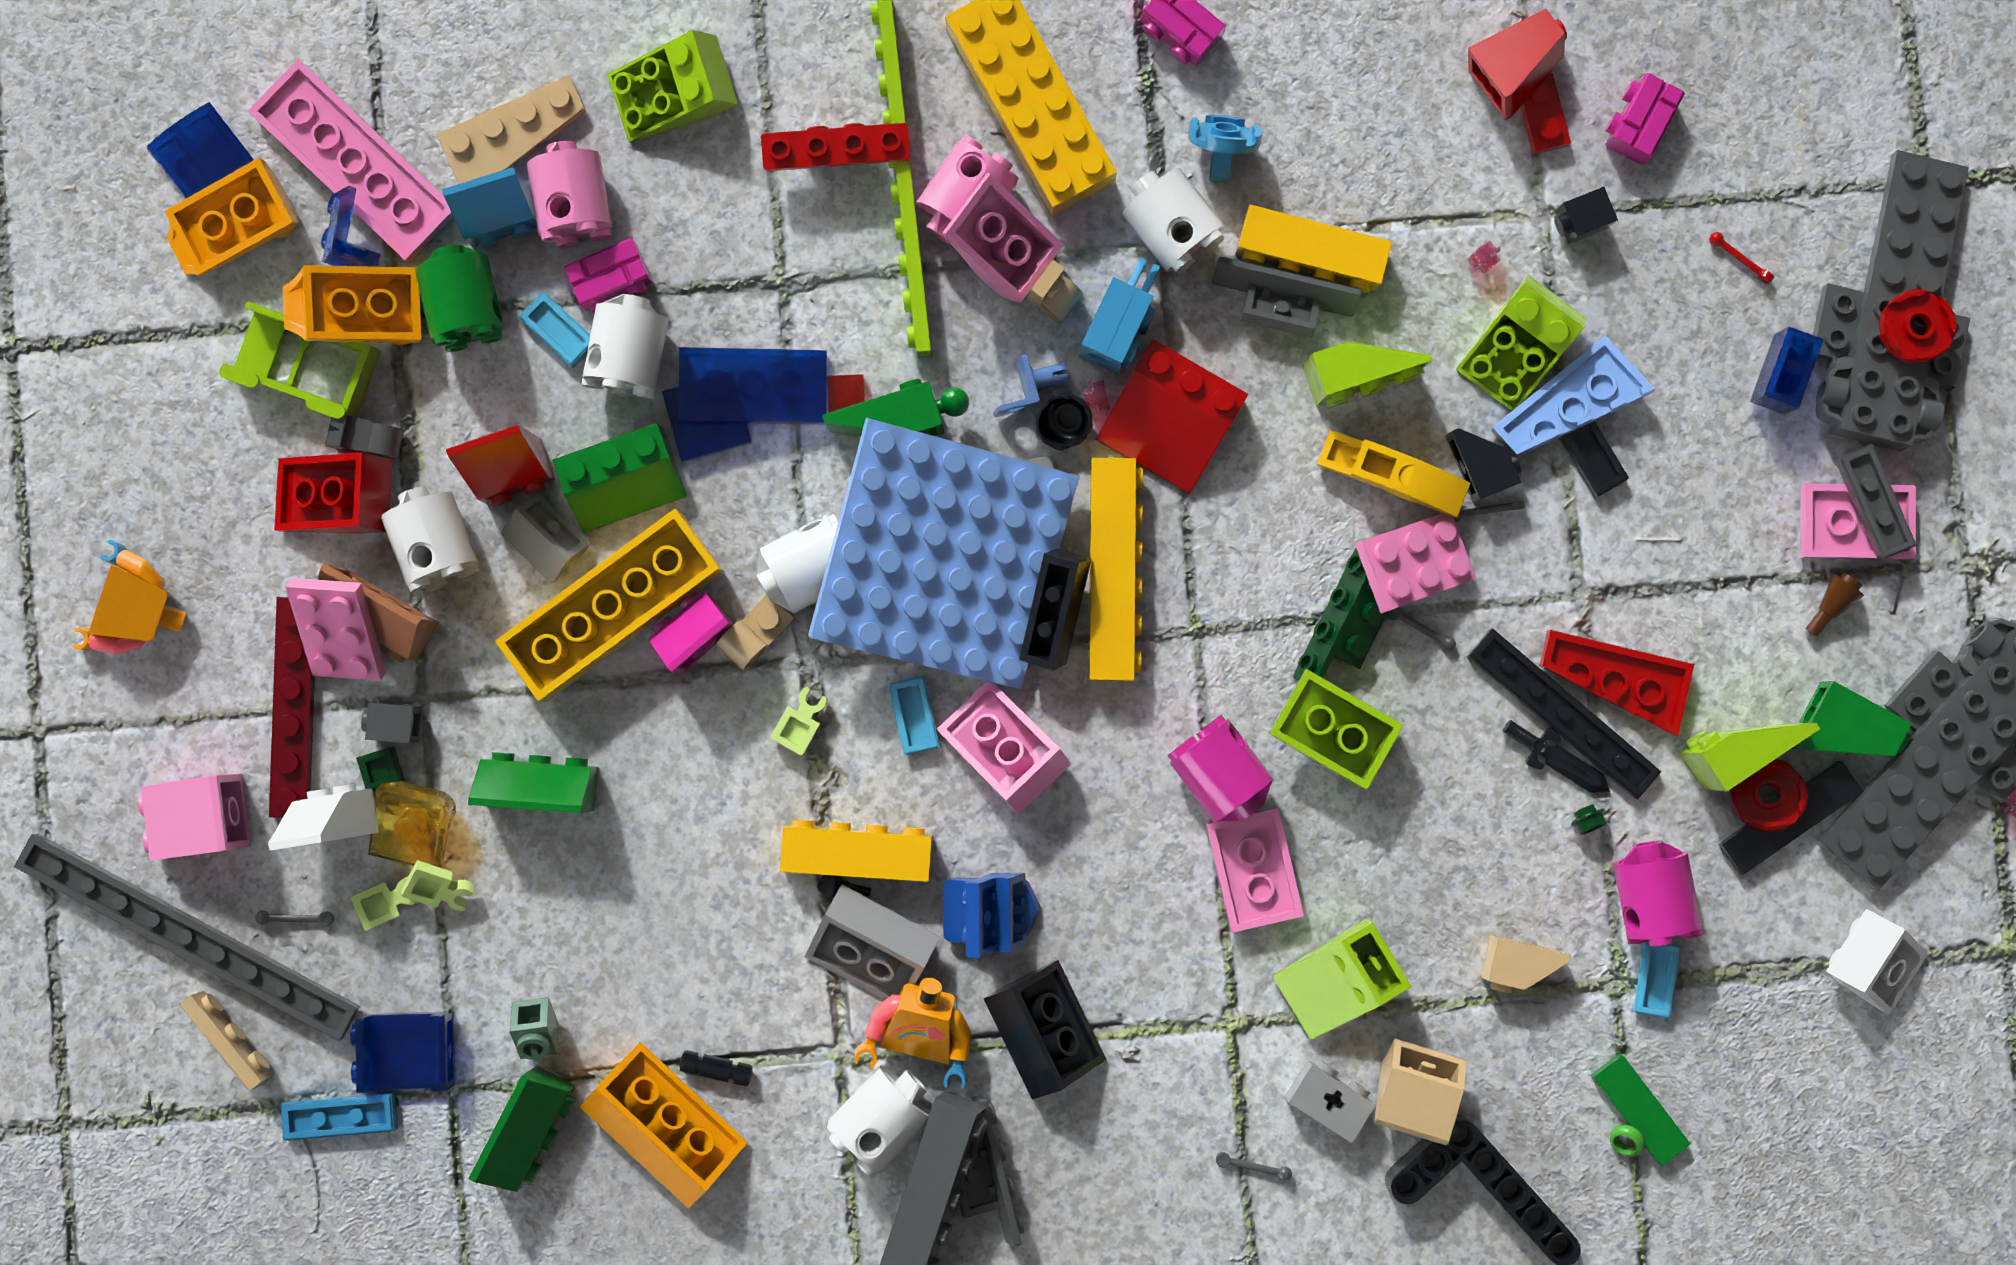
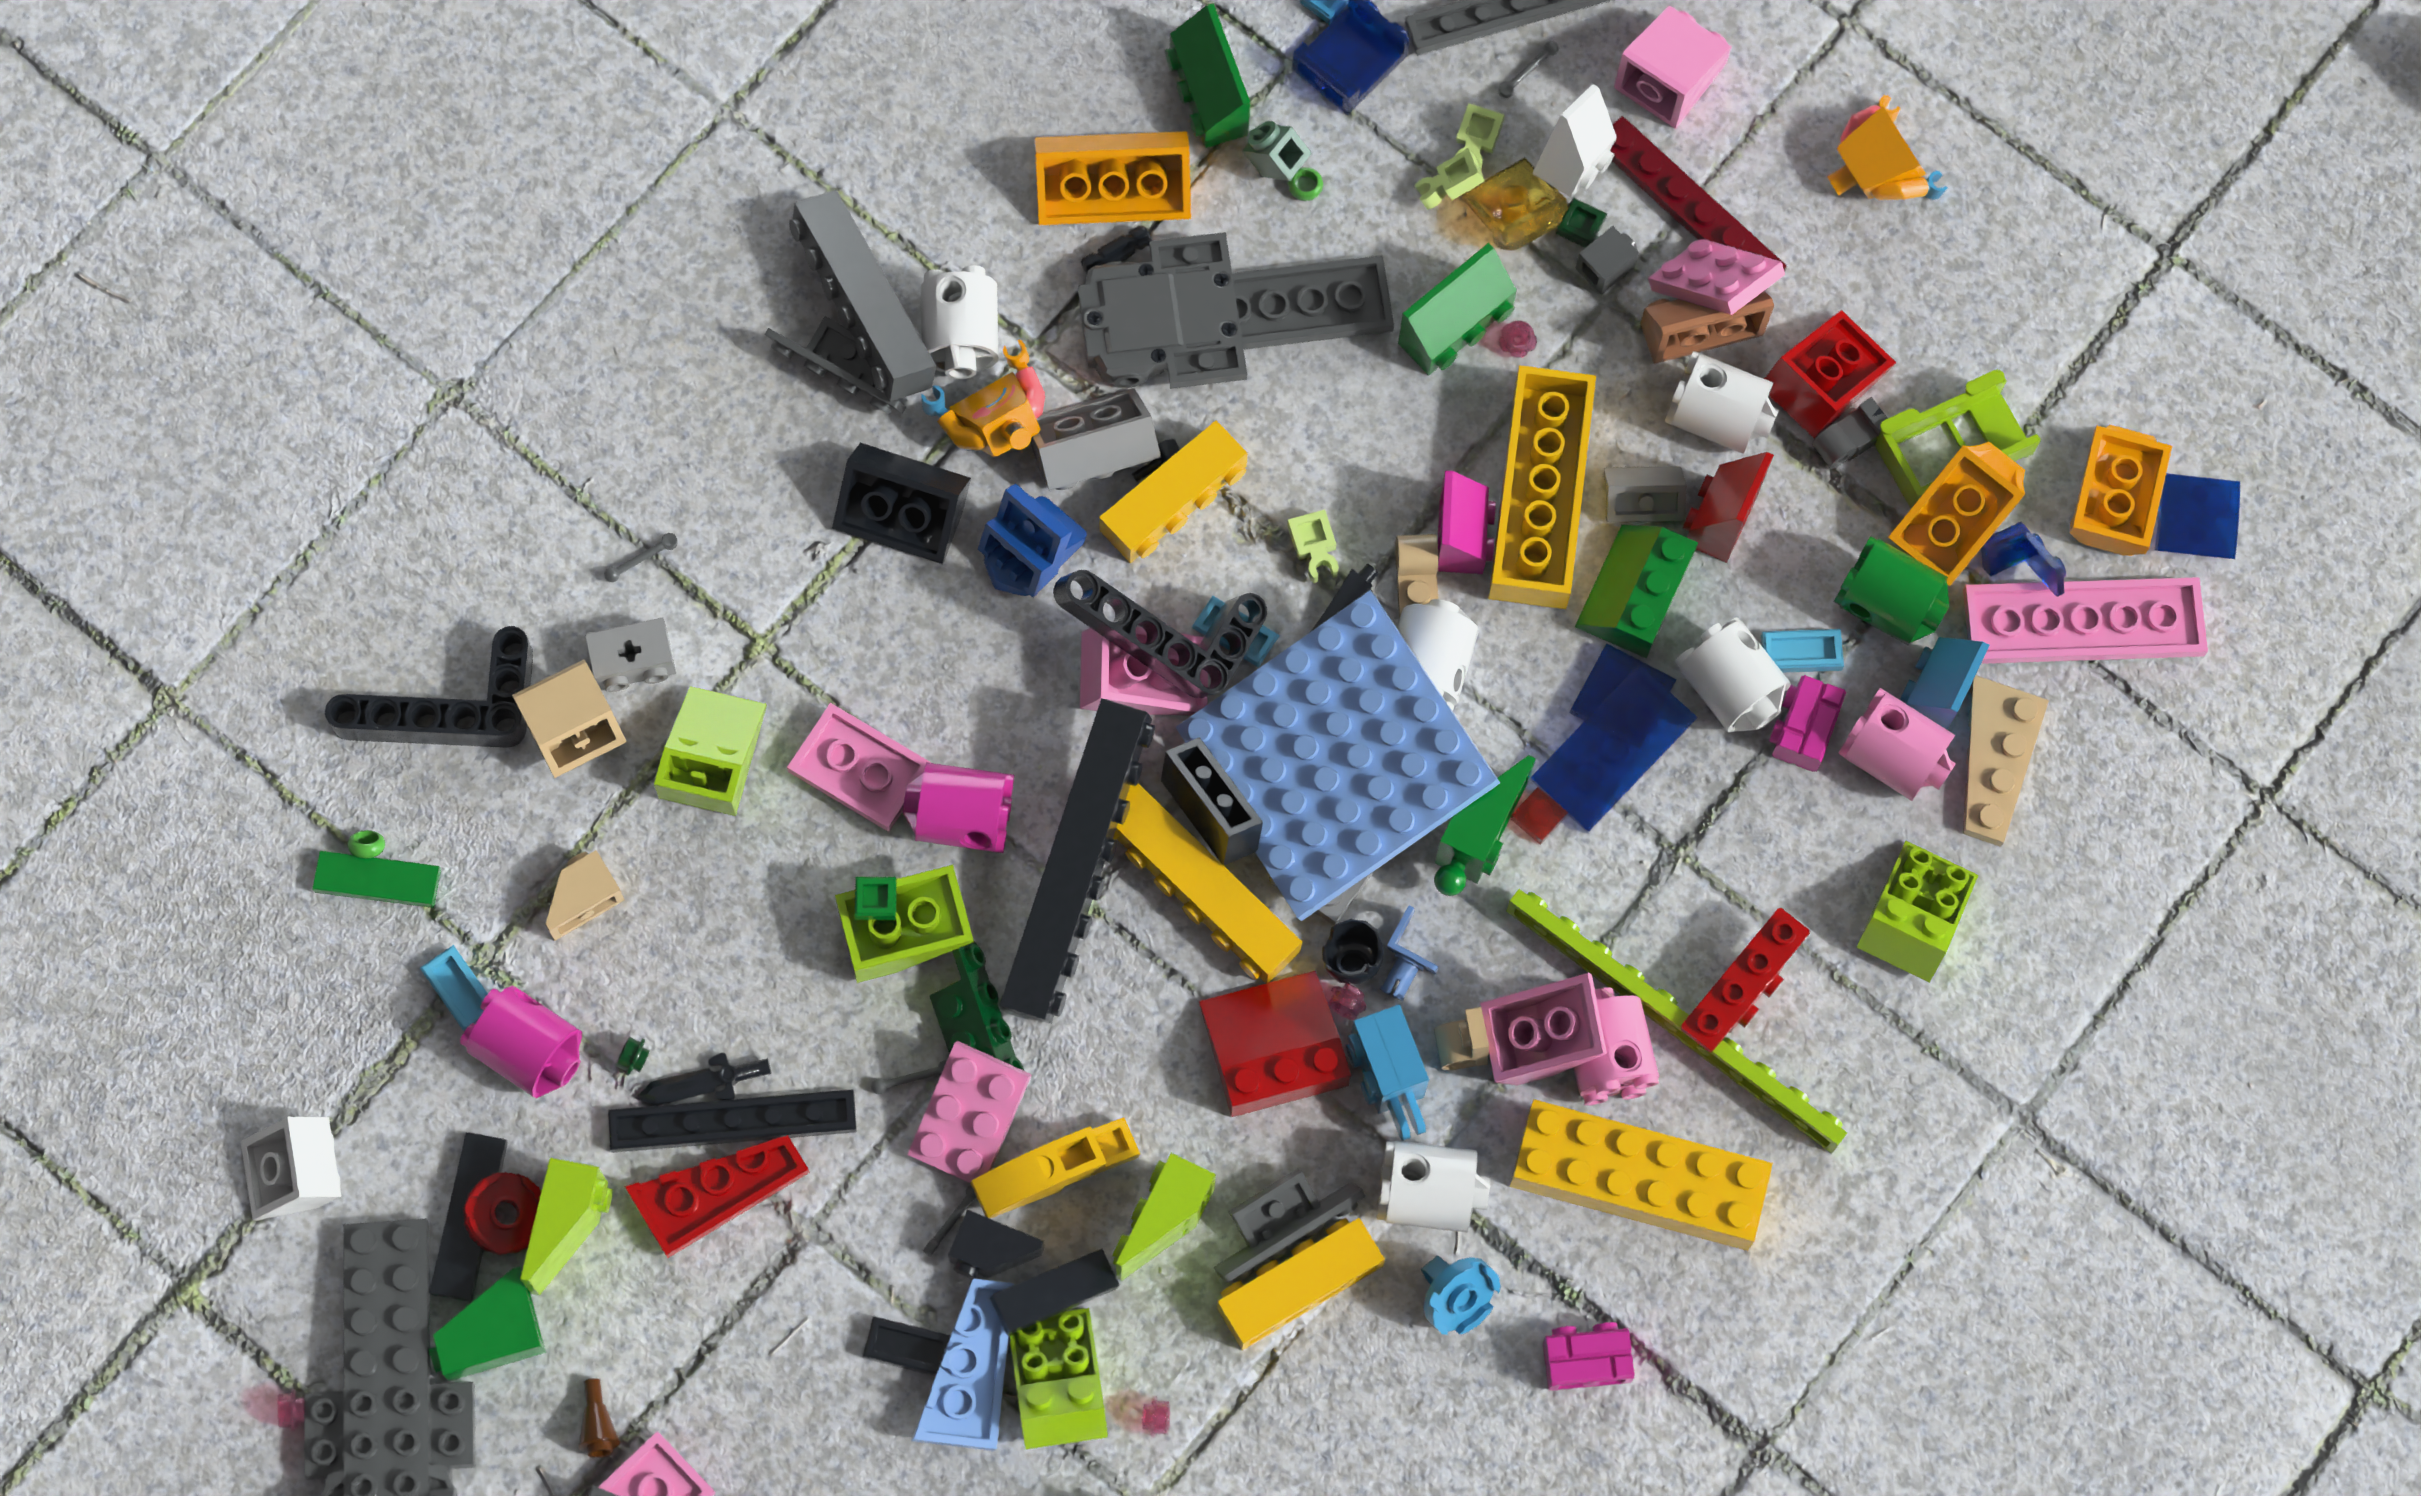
camera: 130 degrees right, 15 degrees down
(503, 732) = (1524, 332): none -> clear pink plate
(535, 974) = (1303, 195): none -> bright green piece
(711, 963) = (1199, 317): none -> dark grey piece
(809, 665) = (1352, 588): none -> black piece
(982, 747) = (1162, 636): none -> black beam
(1183, 656) = (1077, 860): none -> black brick
(1344, 759) = (875, 898): none -> green tile
(1472, 396) = (1054, 1291): none -> black tile

